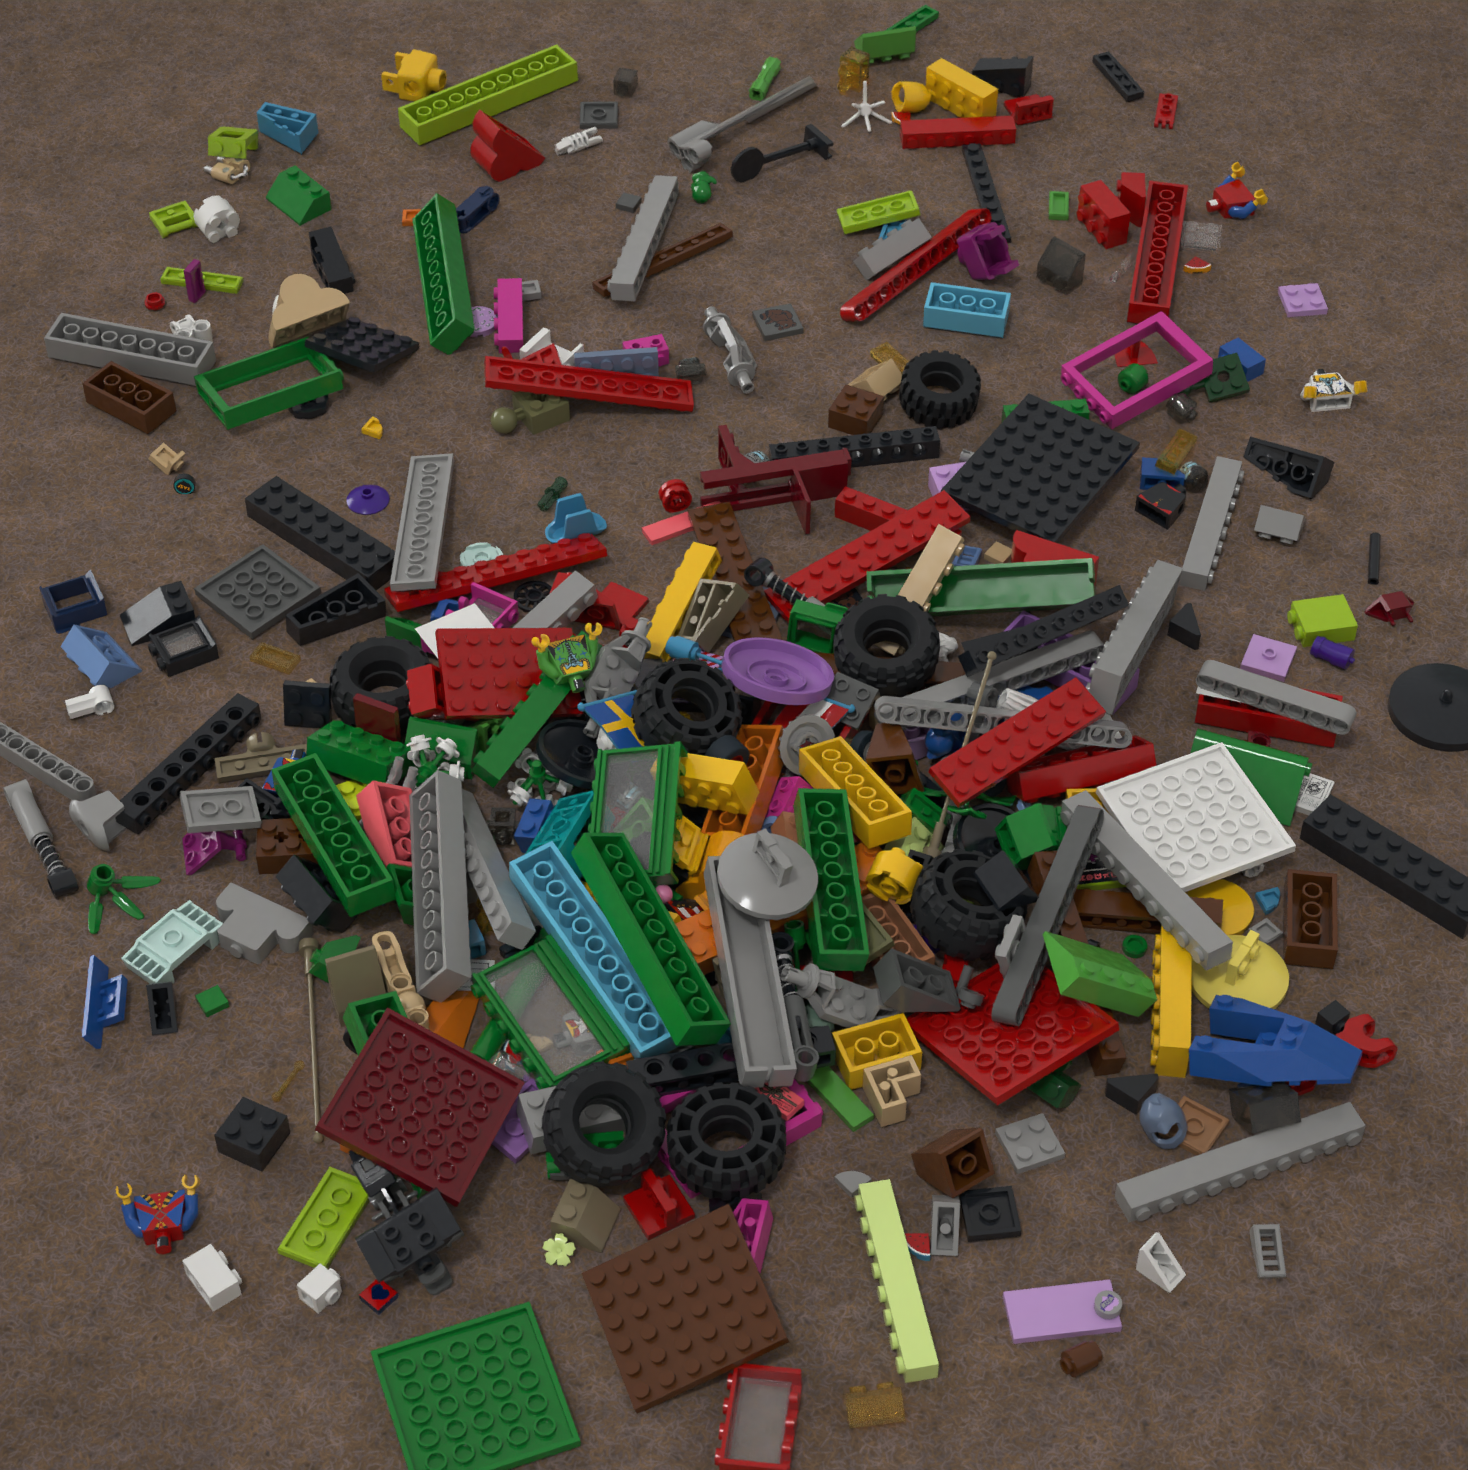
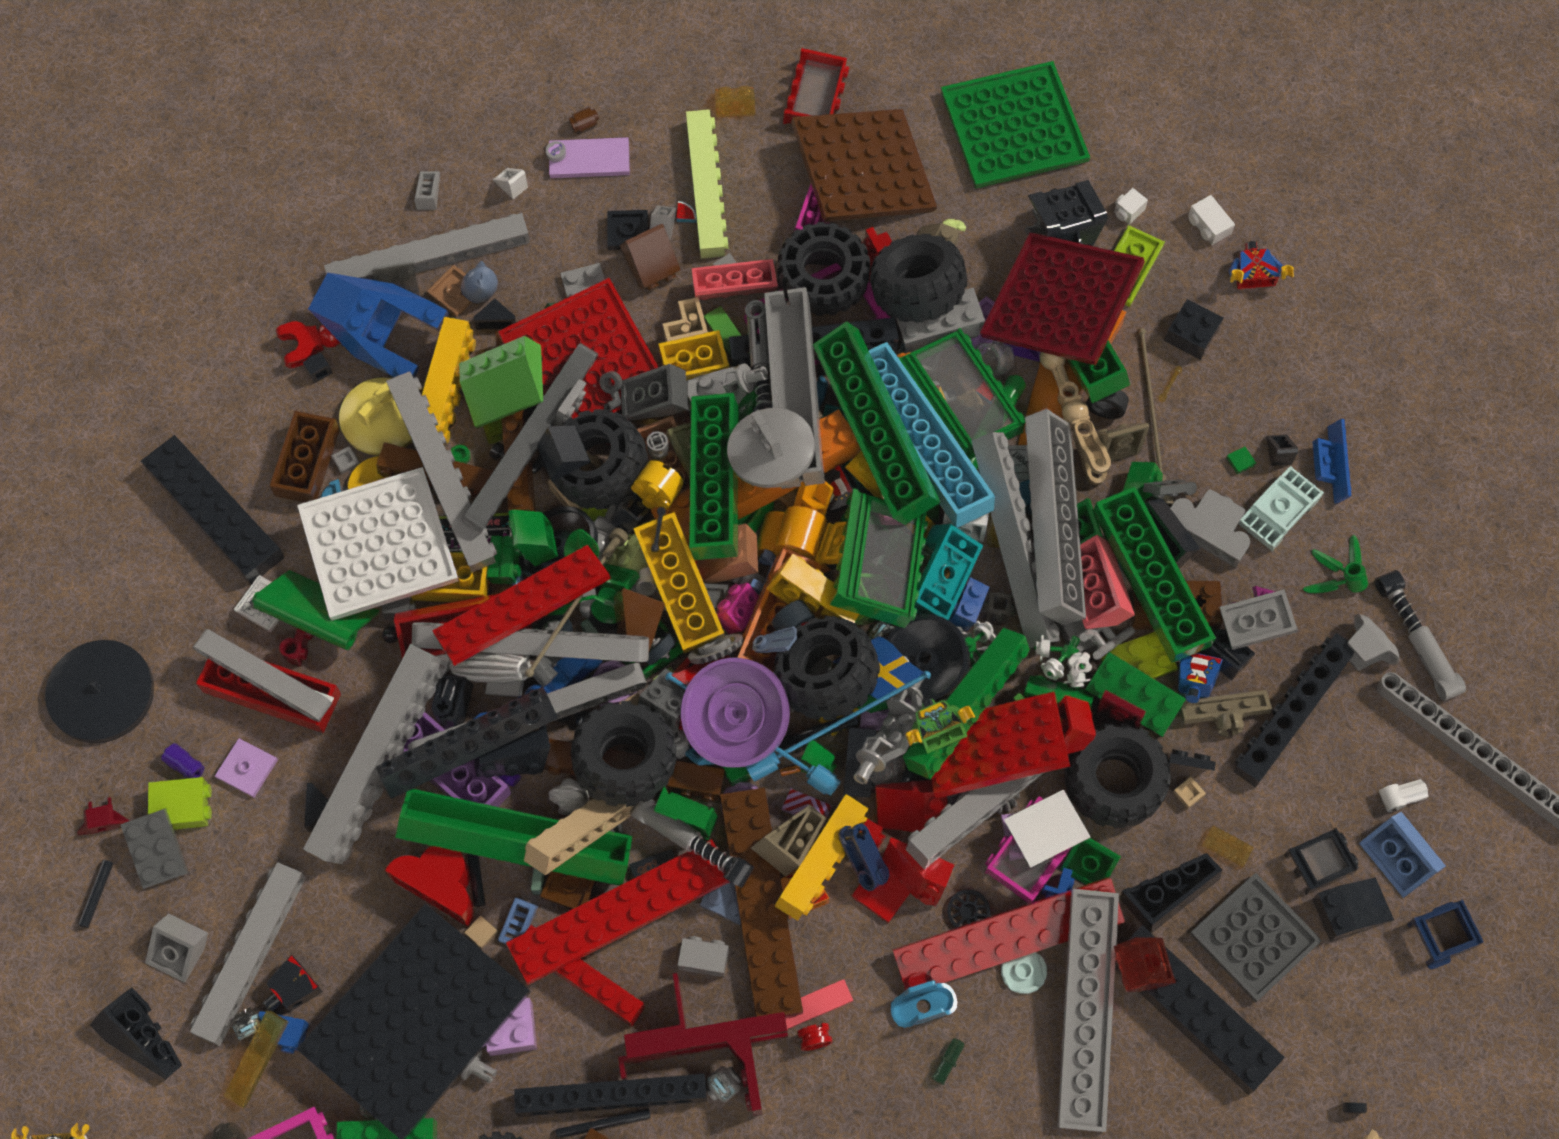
camera: 175 degrees left, 20 degrees up
(304, 942) = (1170, 488): none -> dark grey hinge
(367, 499) = (1143, 1086): dark purple dish -> none
(369, 536) = (1144, 964): none -> clear red slope
(637, 604) = (864, 856): none -> dark blue piece
(742, 726) = (776, 641): none -> sand blue piece
(785, 544) = (703, 956): none -> light grey brick
(839, 1135) = (734, 279): none -> coral slope
(883, 821) = (661, 512): none -> black hinge
(902, 929) = (660, 449): none -> light grey wheel
(1330, 582) = (154, 848): none -> dark grey plate

